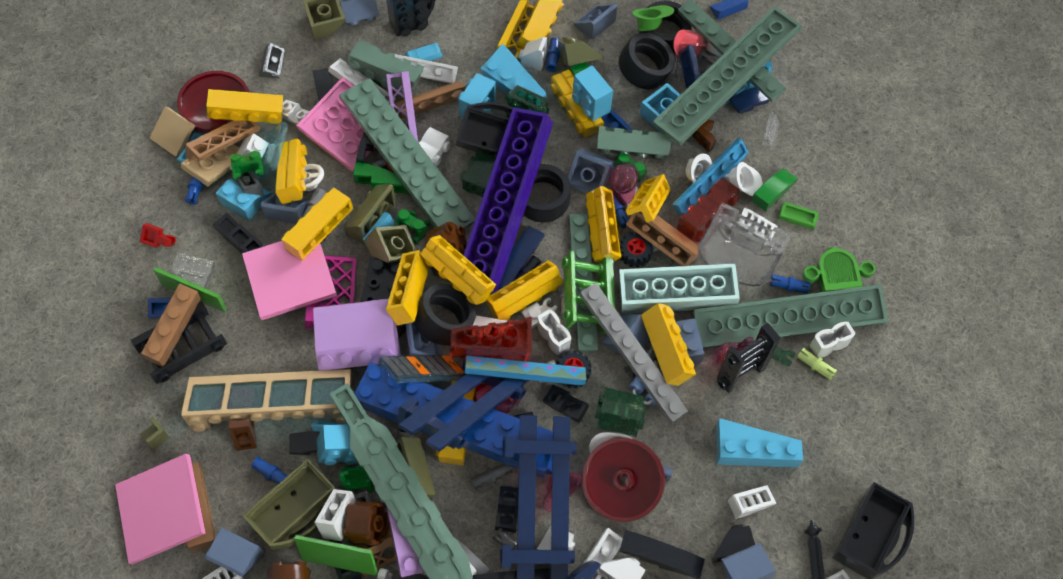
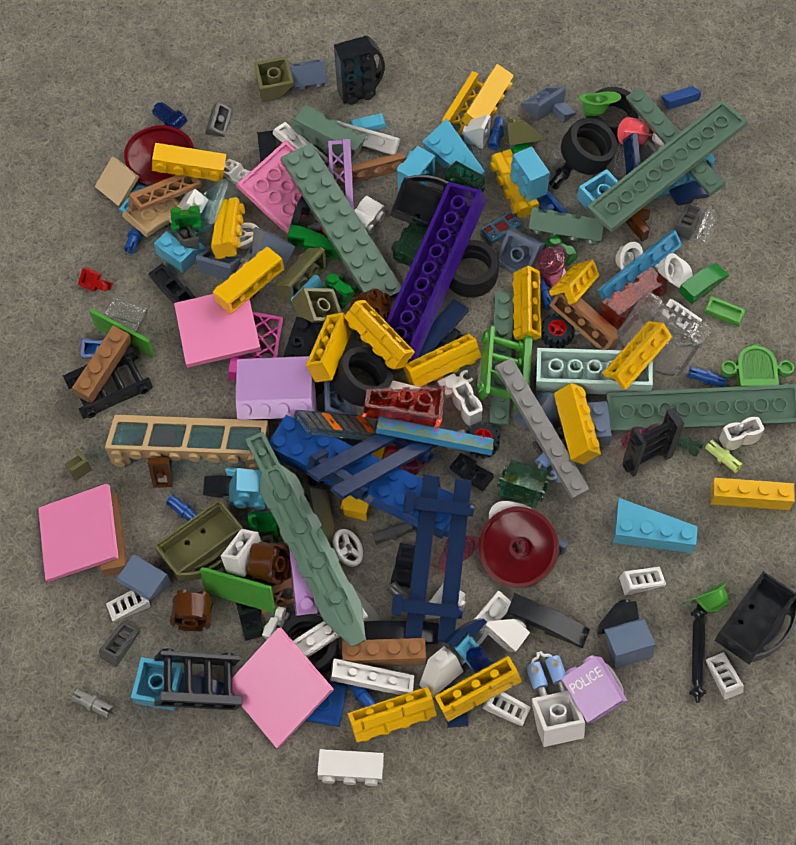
camera: 10 degrees right, 0 degrees up
(221, 61) = (169, 116): none -> clear blue piece
(344, 184) = (279, 245): none -> sand blue slope
(445, 498) = (346, 549): none -> white piece
(567, 149) = (499, 228): none -> tile
(616, 28) = (563, 111): none -> sand blue slope
(622, 90) = (562, 174): none -> black pin
(724, 267) = (639, 354): none -> yellow fence
(748, 137) = (685, 230): none -> dark grey slope
(825, 514) = (713, 599): none -> bright green piece
(850, 400) = (752, 493): none -> yellow brick

